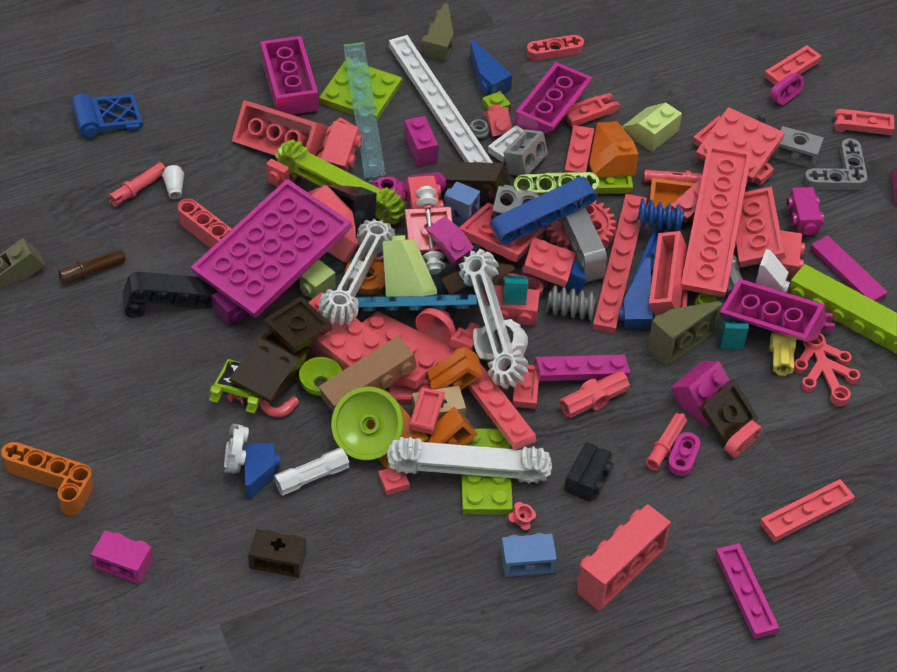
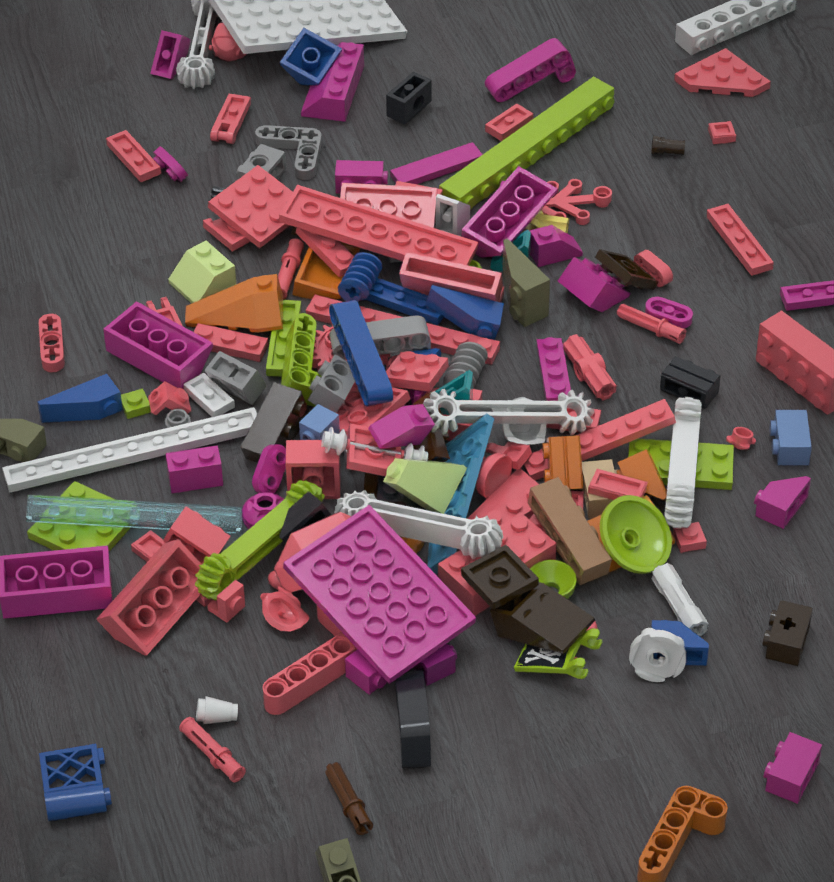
camera: 80 degrees left, 5 degrees down
(442, 547) = (781, 500): none -> dark pink slope
(754, 359) = (552, 246): none -> dark pink slope

